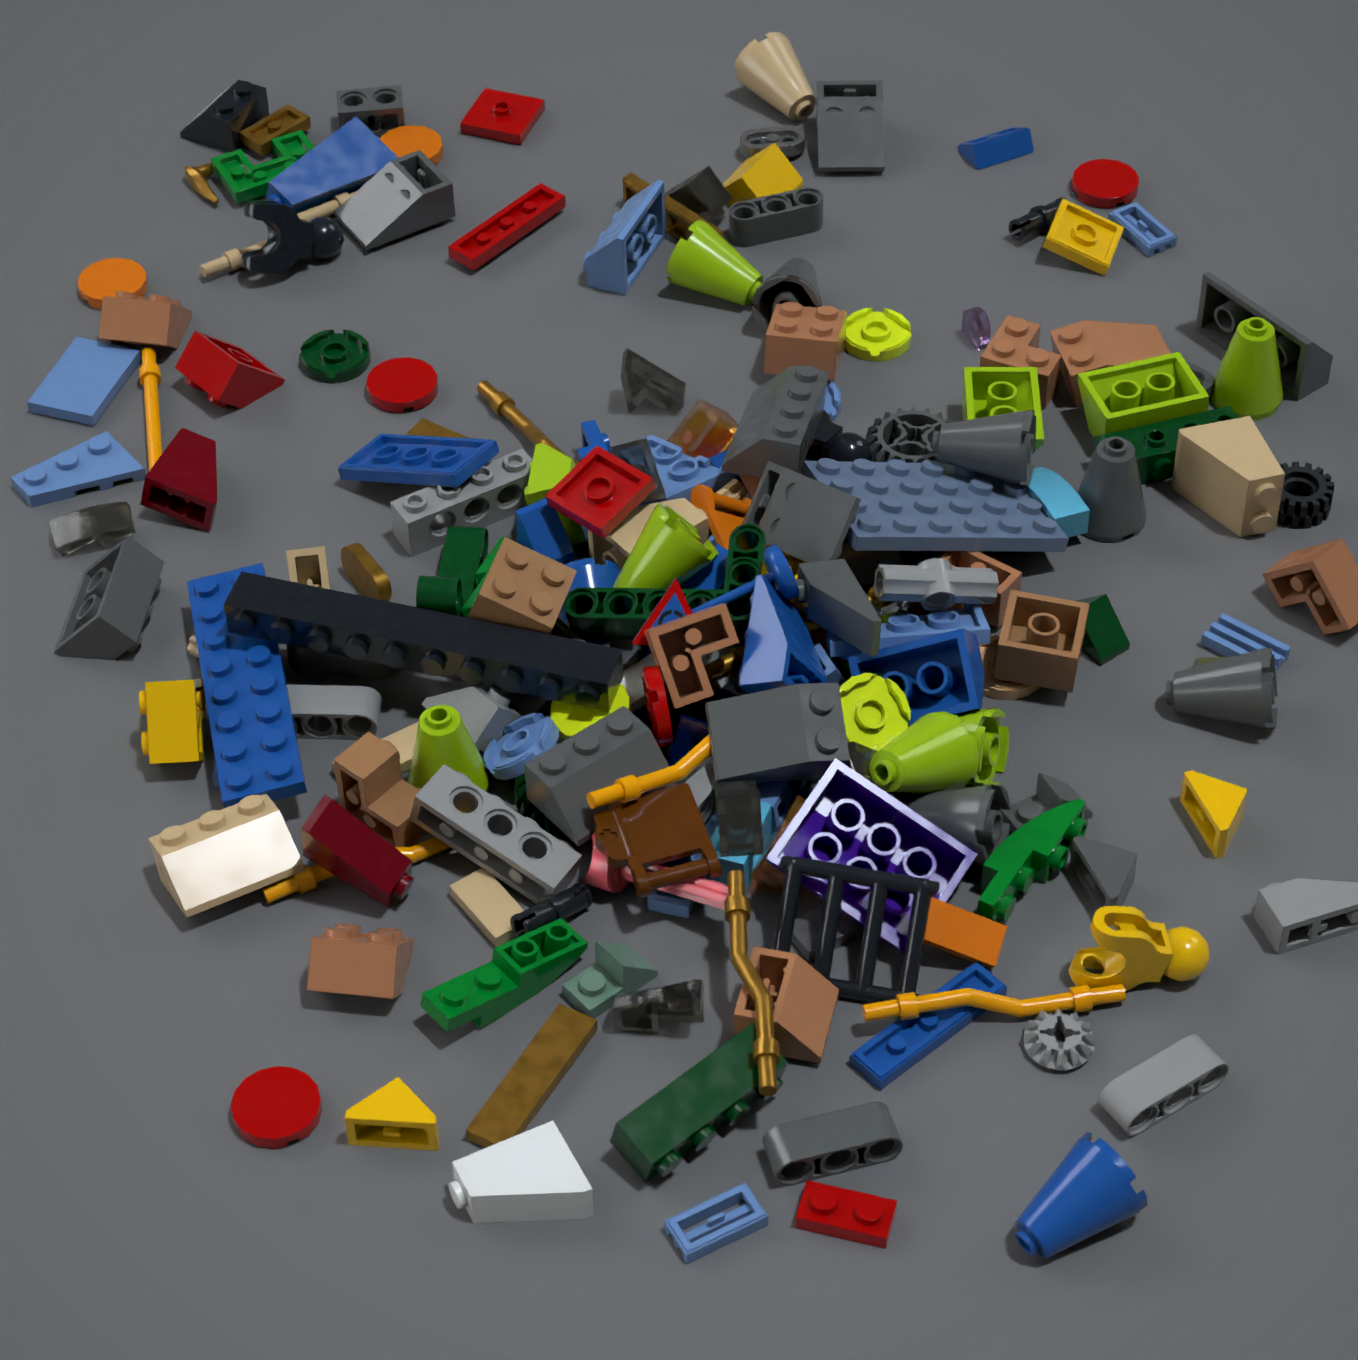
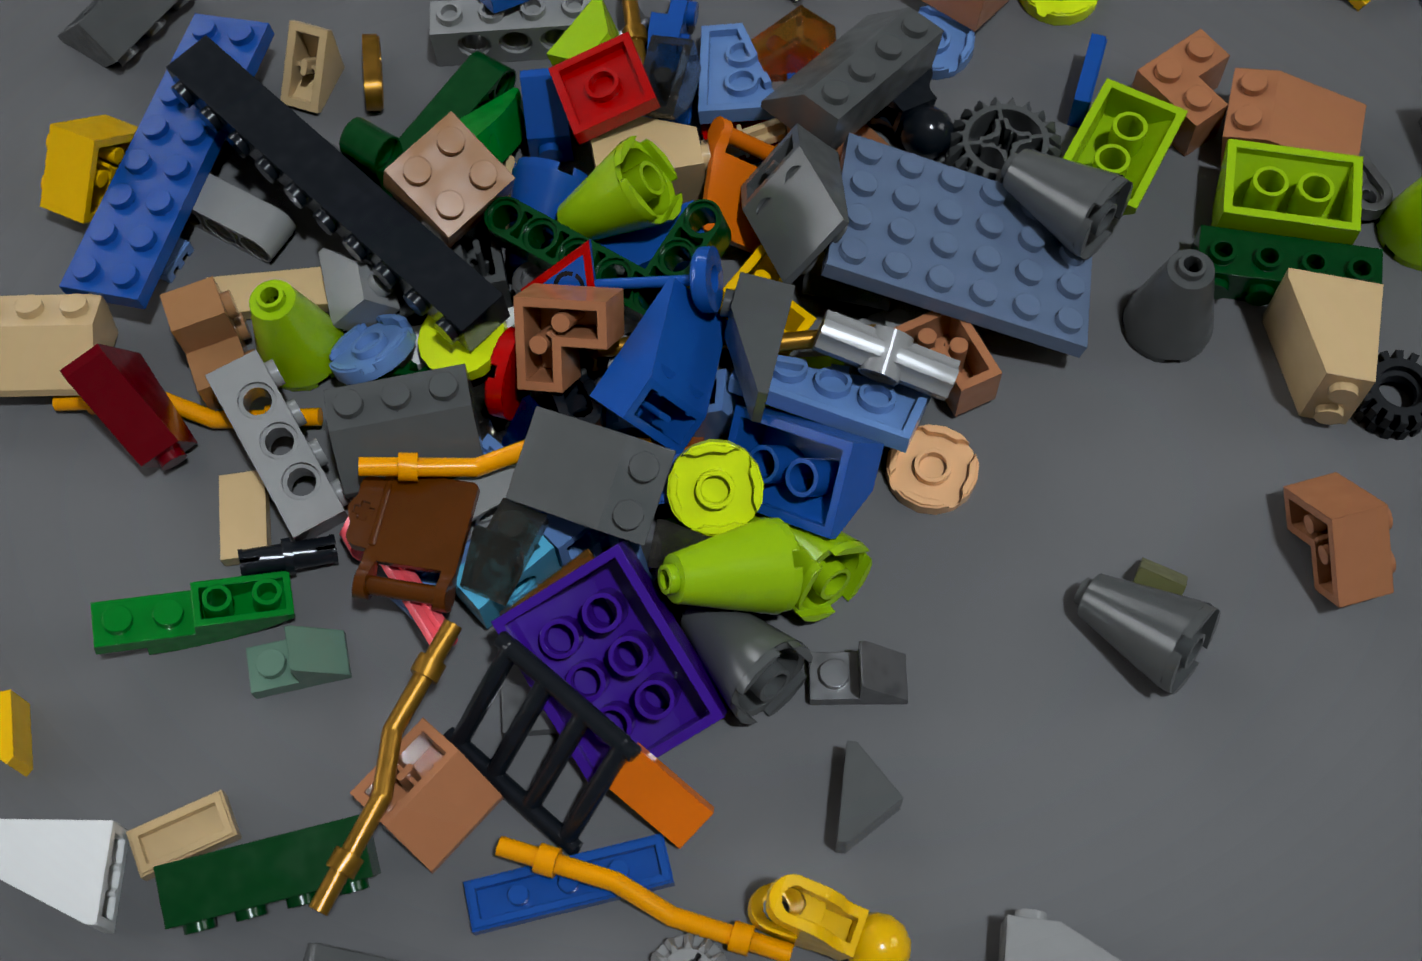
camera: 30 degrees right, 20 degrees up
(359, 962) = (79, 526): nougat slope -> none
(532, 1077) = (152, 744): pearl gold tile -> none
(591, 1132) = (184, 833): none -> tan tile
(643, 1009) = (311, 725): clear smoke slope -> none
(943, 382) = (1087, 80): none -> blue tile
(976, 327) = (1168, 24): clear purple tile -> none
(1029, 855) = (808, 724): green slope -> none
(1041, 640) = (971, 468): medium nougat brick -> none
(1059, 501) = (1111, 287): medium azure slope -> none
(1103, 633) = (1053, 465): dark green slope -> none
(1214, 808) = (1038, 771): yellow slope -> none
(1244, 636) = (1227, 556): medium blue tile -> none

